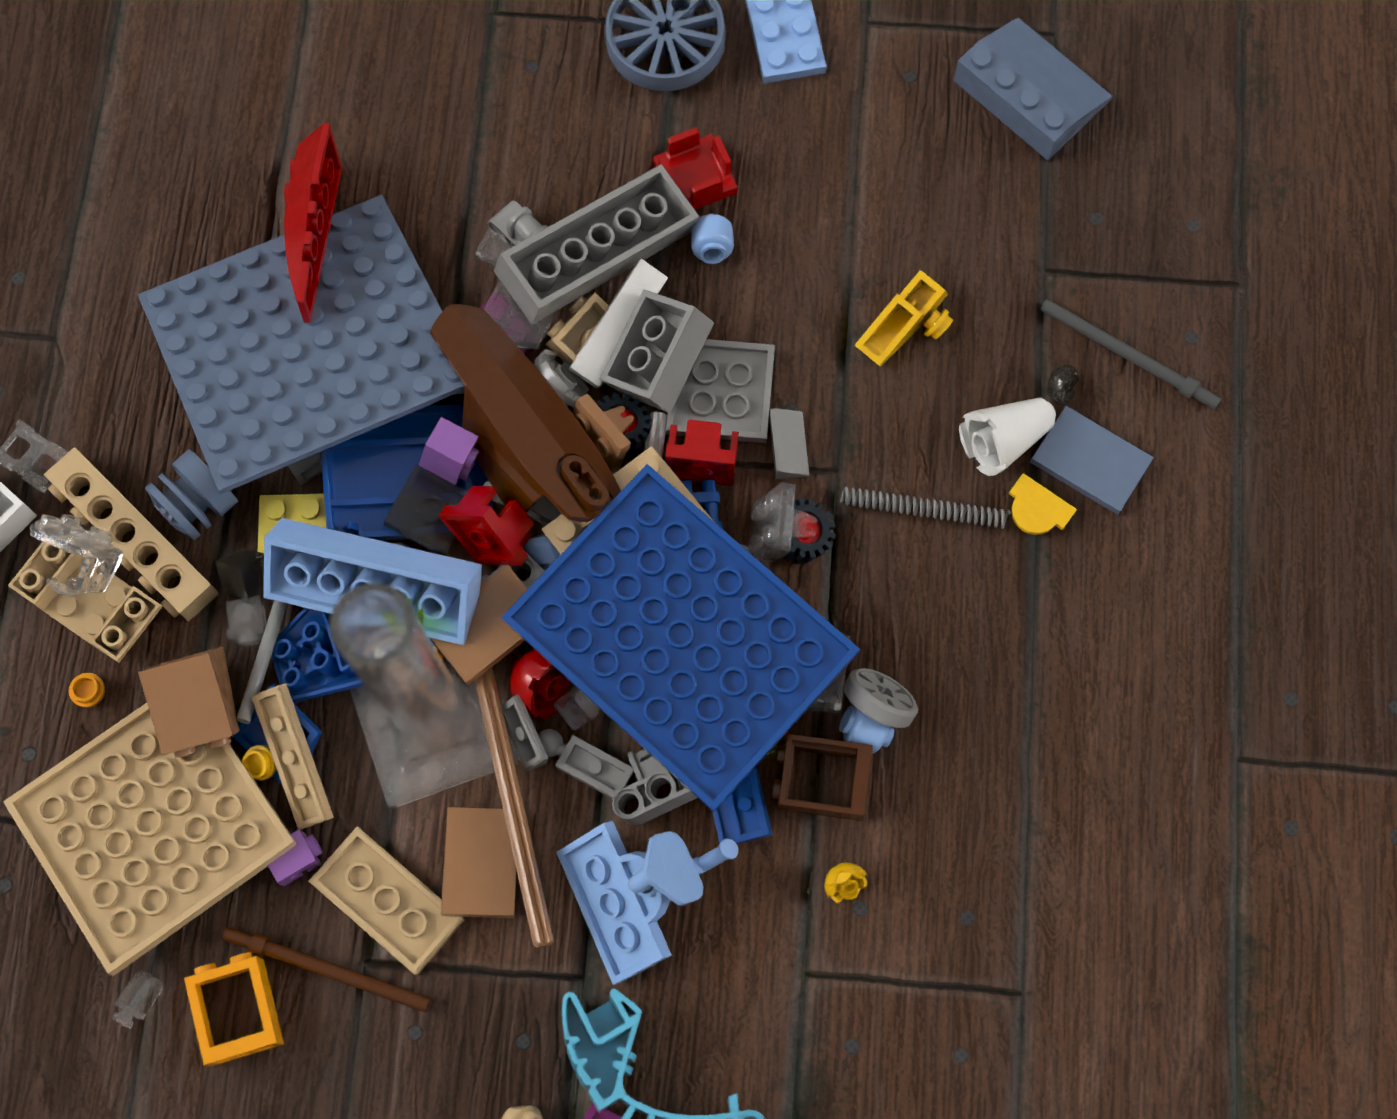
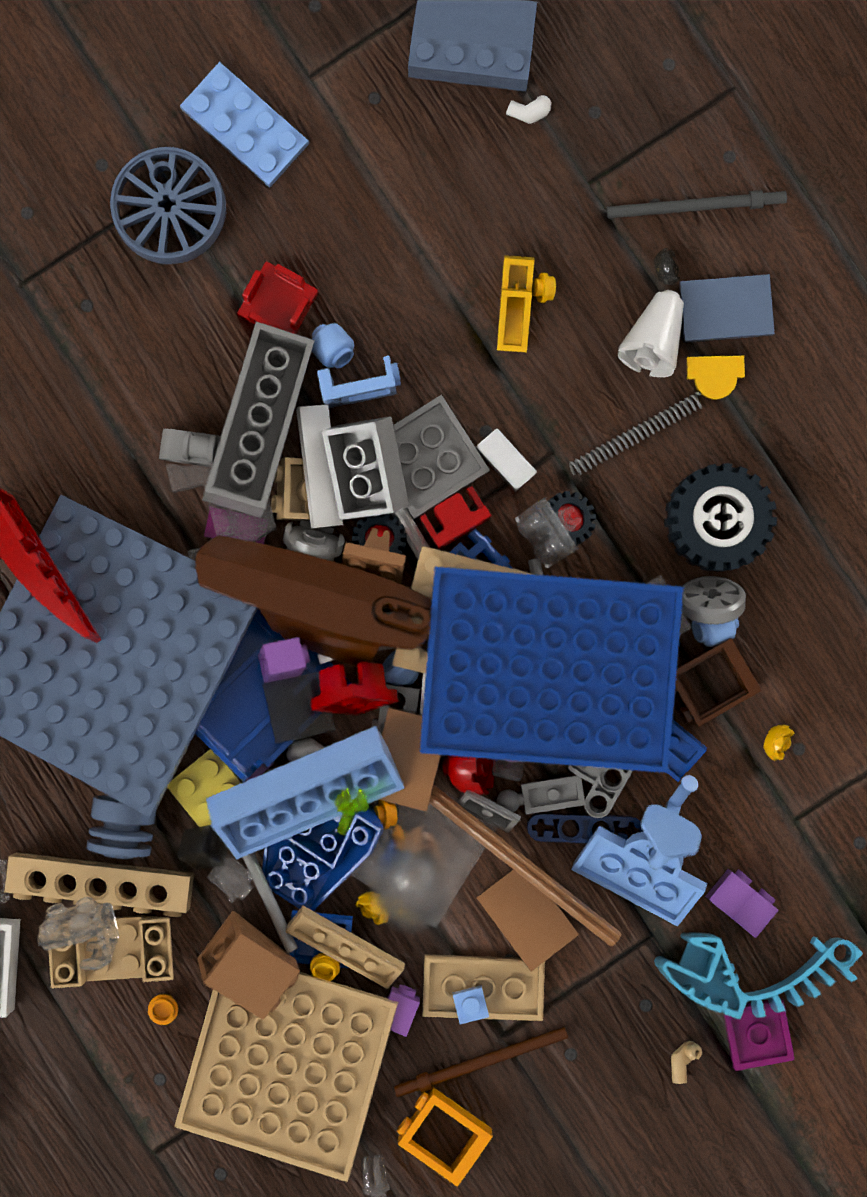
camera: 40 degrees left, 15 degrees up
(349, 743) = (370, 907): none -> yellow plate
(360, 902) = (470, 1004): none -> light blue plate
(603, 814) = (585, 824): none -> dark blue beam
(682, 271) = (359, 390): none -> light blue window
(693, 1010) = (742, 902): none -> medium lavender brick
(976, 653) = (687, 517): none -> black wheel
(1039, 177) = (532, 112): none -> white arm

